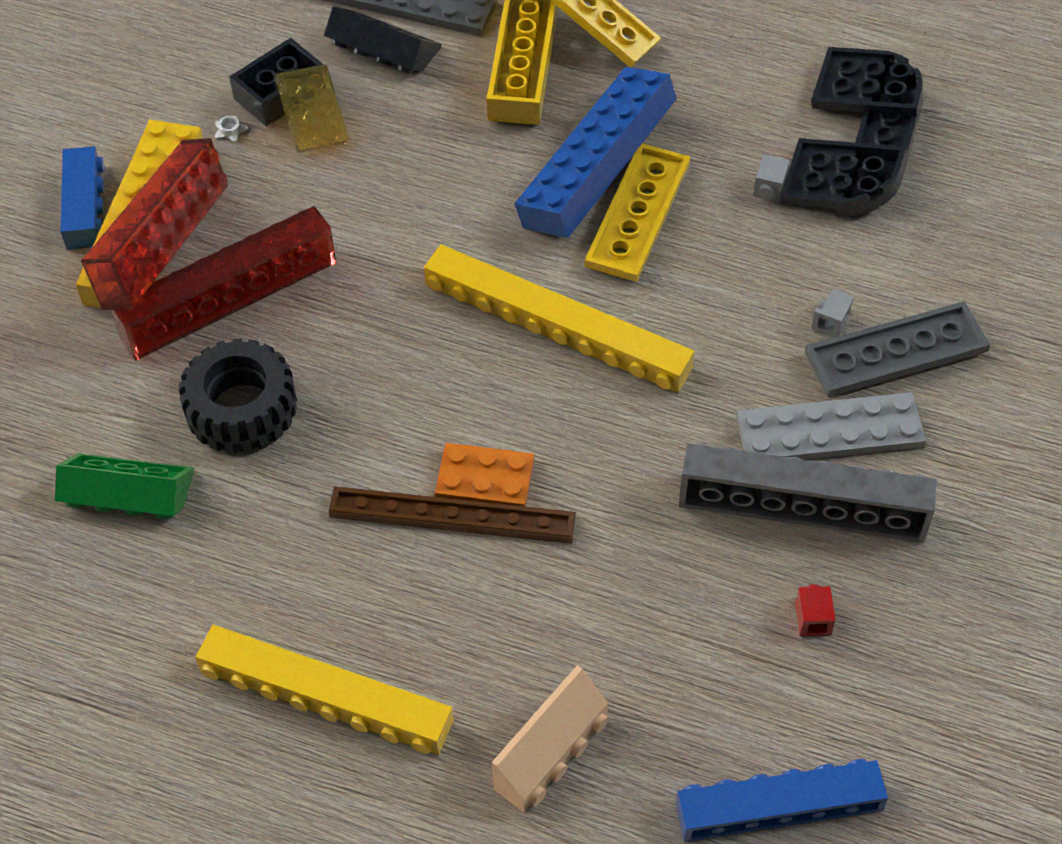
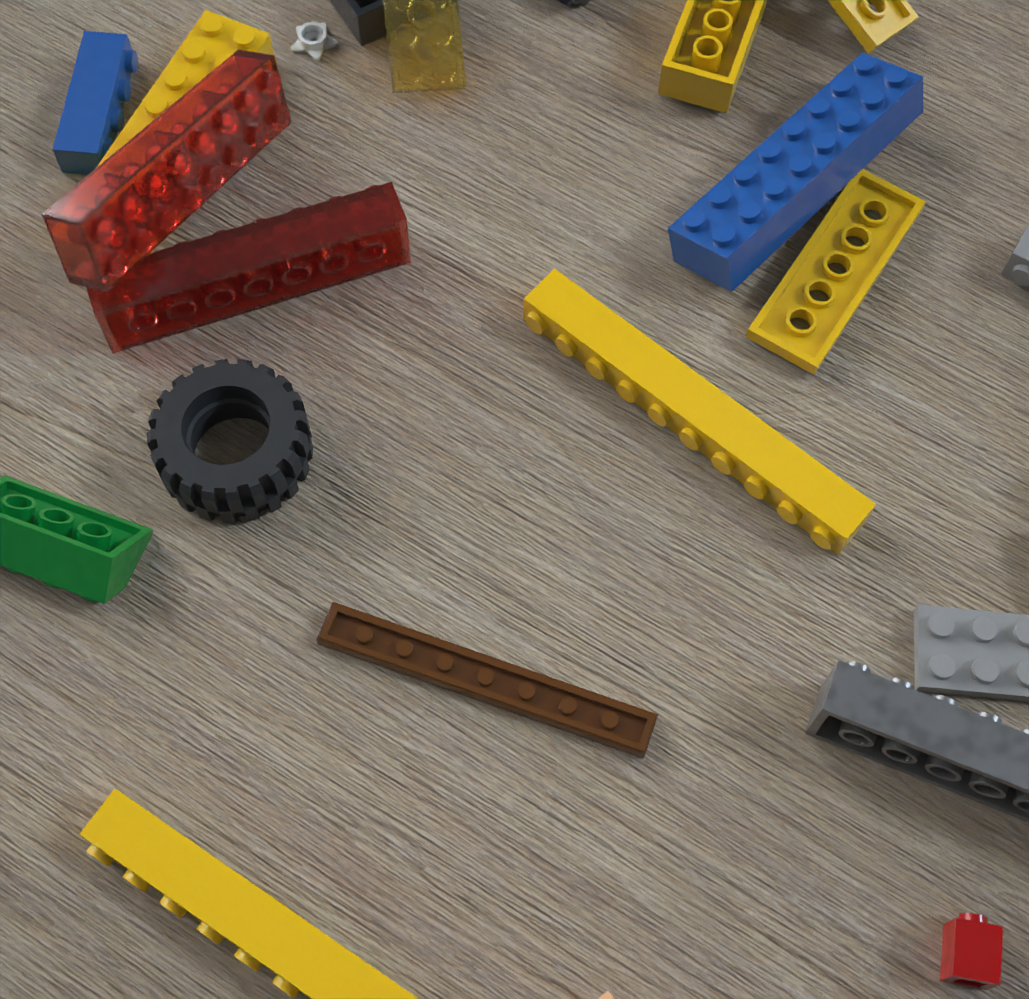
camera: 10 degrees right, 10 degrees up
(484, 474) = (543, 629): orange plate -> none

